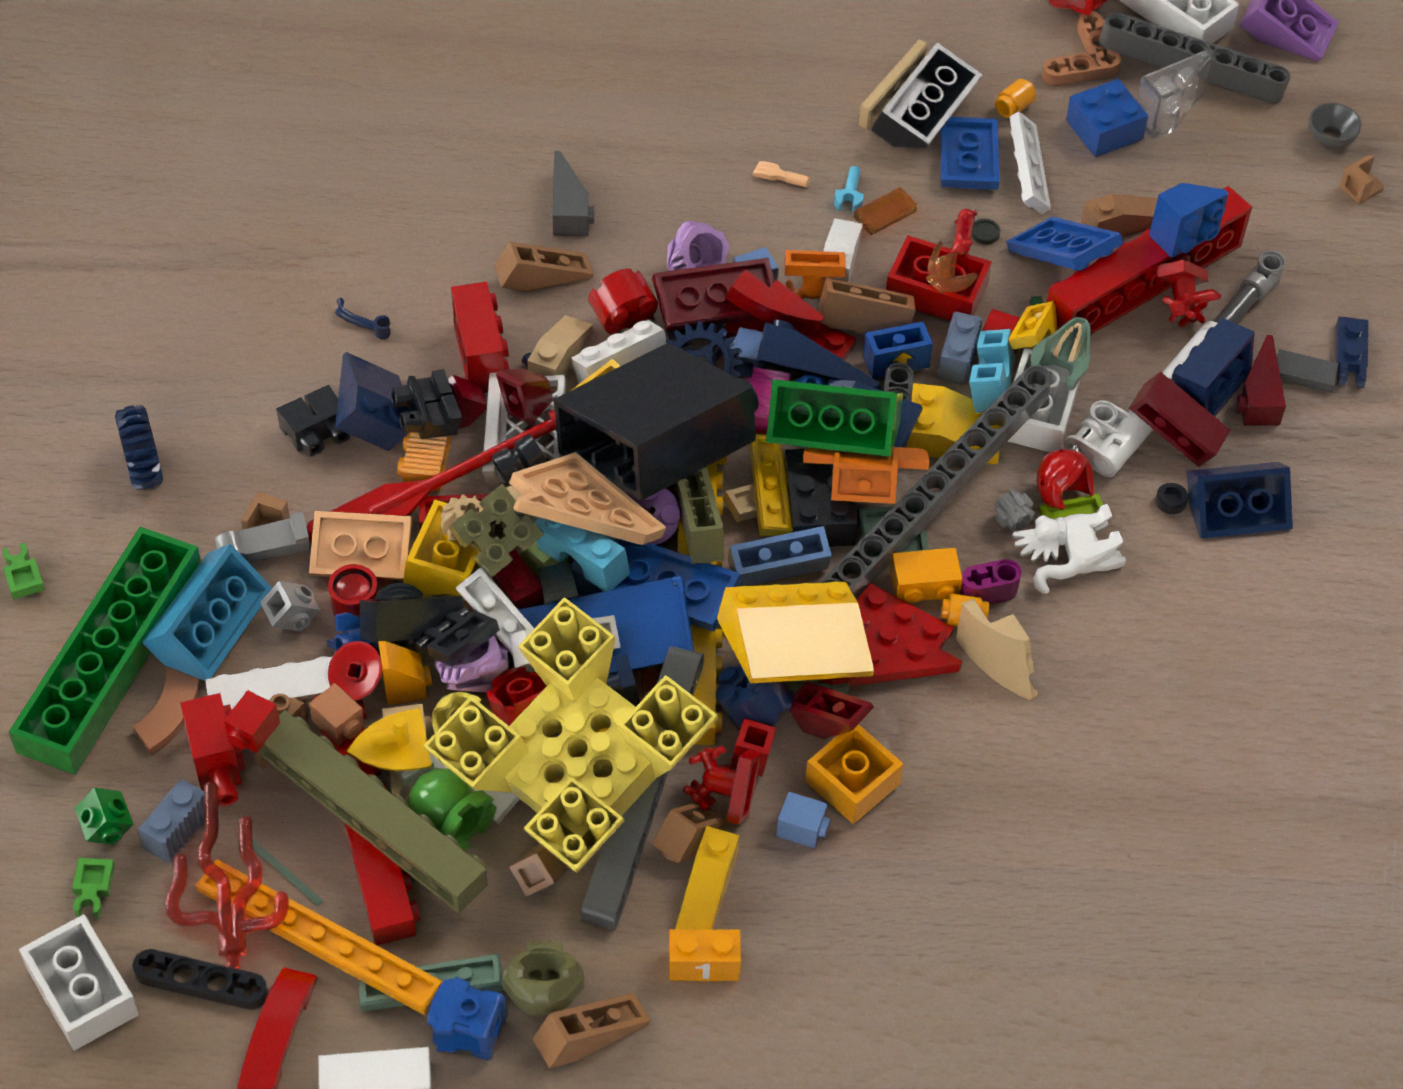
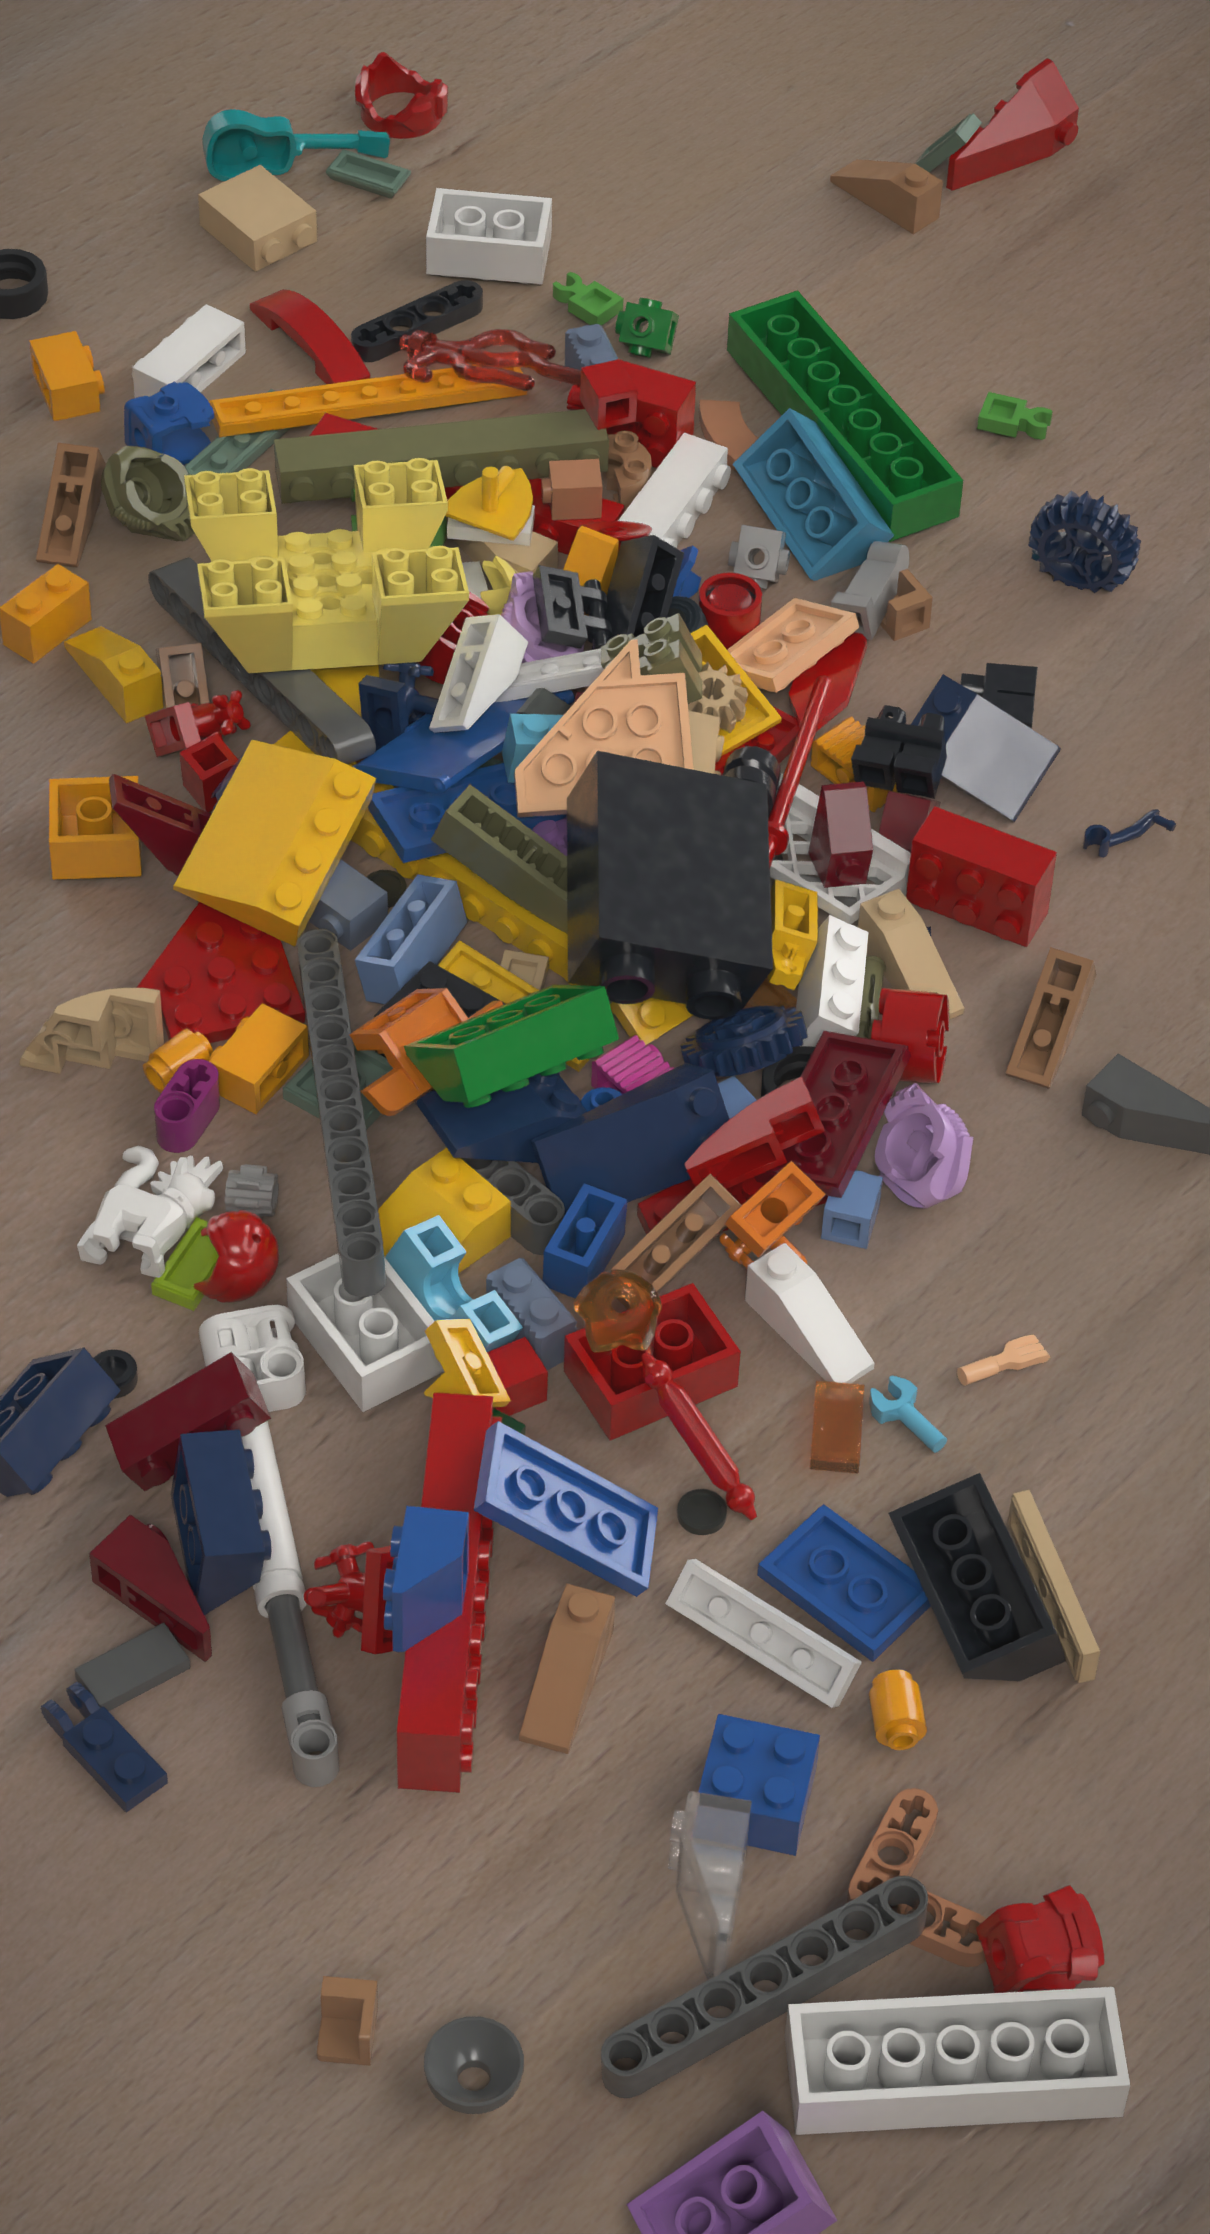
camera: 130 degrees right, 5 degrees down
(803, 820) = (96, 758): medium blue brick -> none
(1066, 348) = (393, 1361): sand green animal -> none

